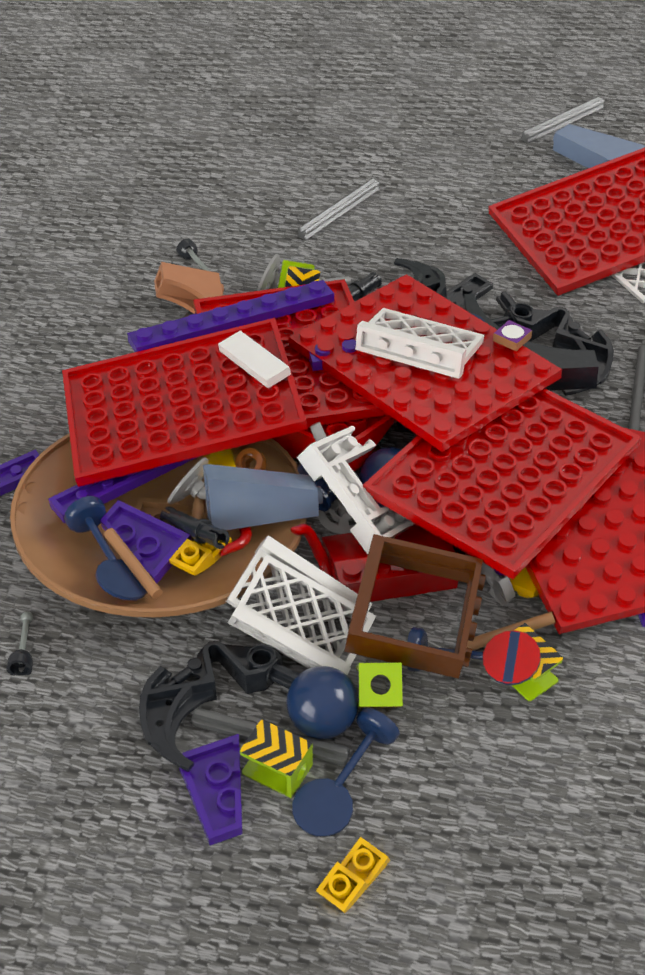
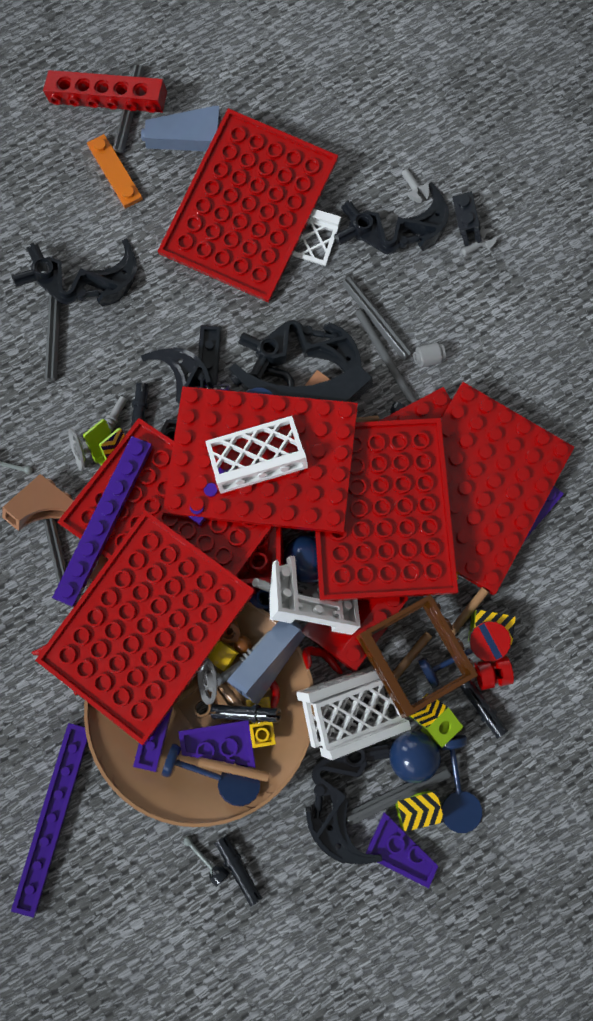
camera: 45 degrees left, 30 degrees up
(46, 661) = (240, 874): none -> black pin
(254, 359) = (170, 562): white tile -> none
(353, 876) = (511, 837): yellow slope -> none
(413, 201) = (110, 280): none -> black piece
(431, 630) = (411, 655): none -> medium nougat bar
(444, 757) = (498, 729): none -> black pin
(488, 701) = (486, 673): none -> red wheel
(507, 147) = (114, 171): none -> orange plate
(512, 335) = (308, 400): tile -> none
(554, 94) = (105, 91): none -> red brick

